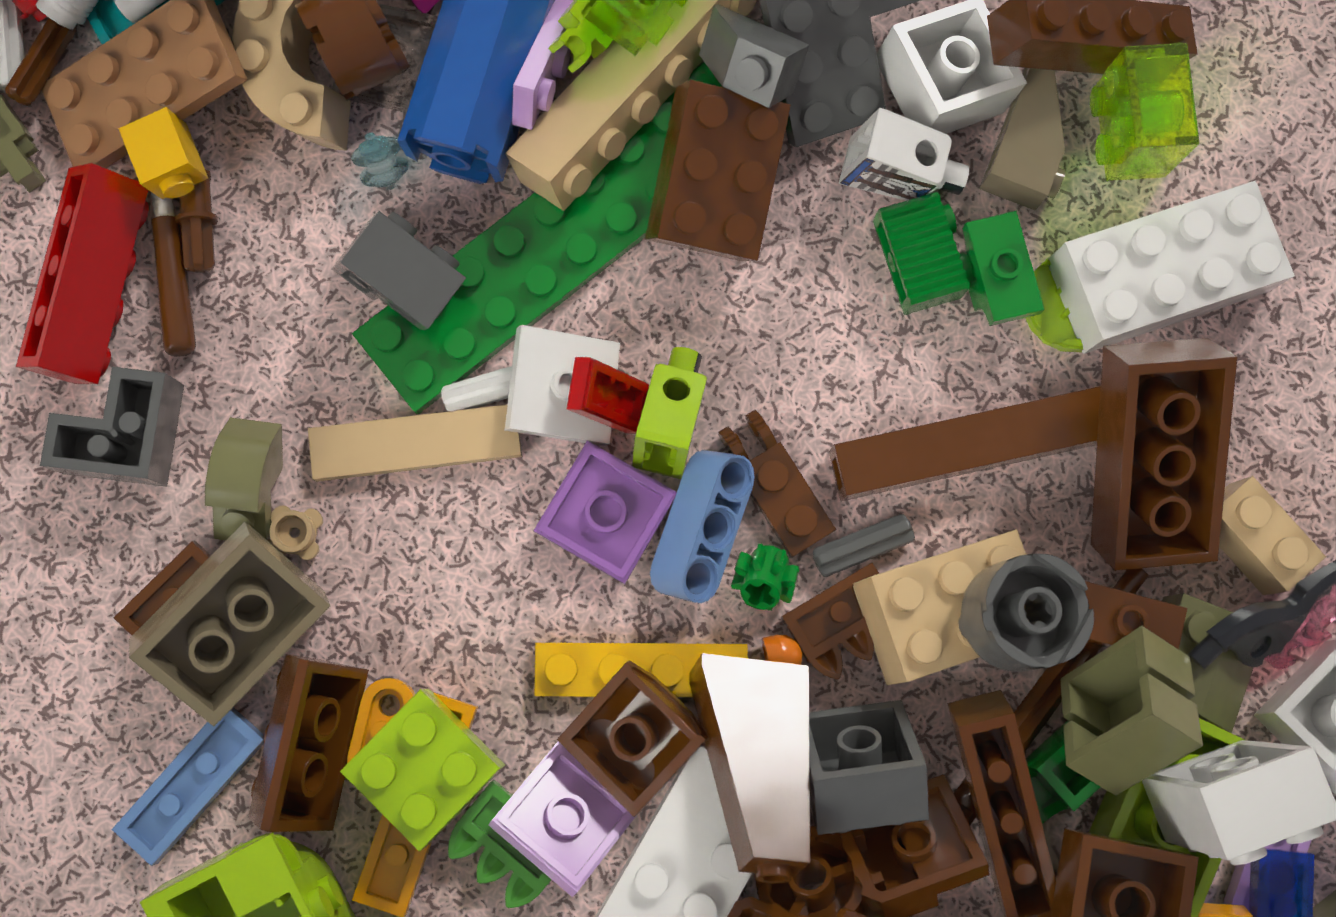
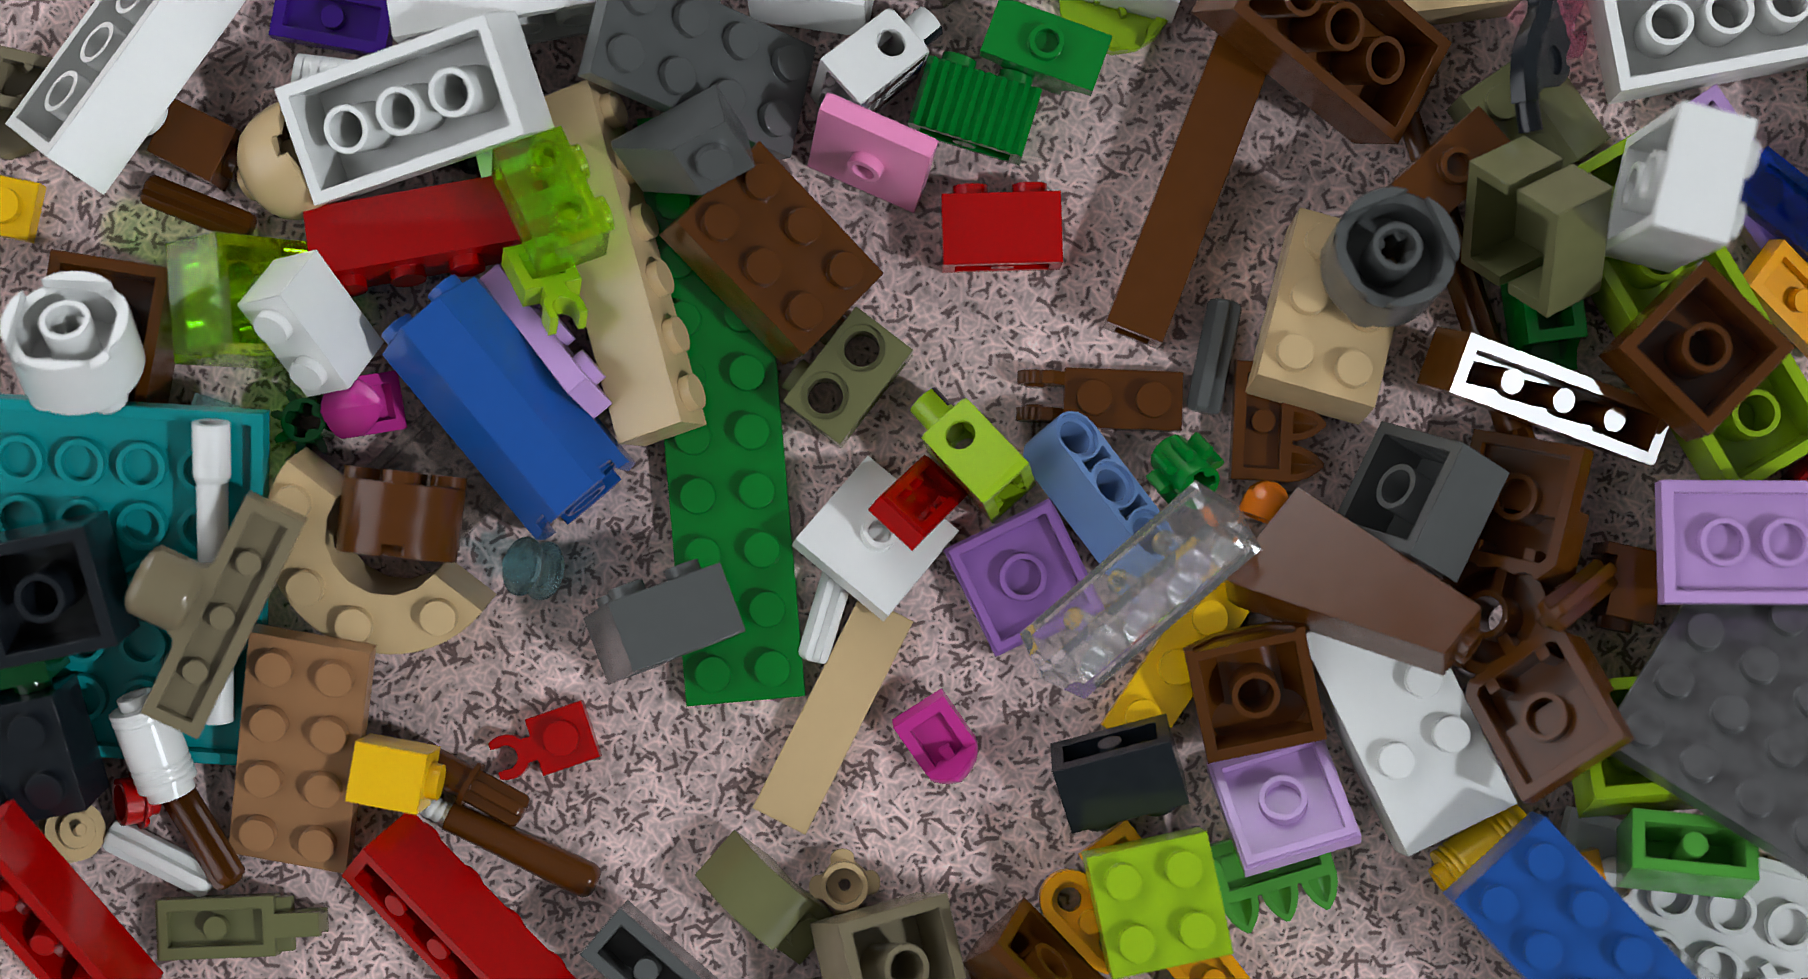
camera: 50 degrees left, 5 degrees up
(266, 258) = (556, 740): none -> red plate
(445, 528) = (938, 738): none -> dark pink plate
(504, 678) = (1119, 774): none -> black brick
(651, 598) = (1140, 590): none -> clear brick
(665, 303) = (859, 385): none -> olive brick
(839, 196) = (871, 152): none -> bright pink plate
(848, 328) = (1001, 229): none -> red brick

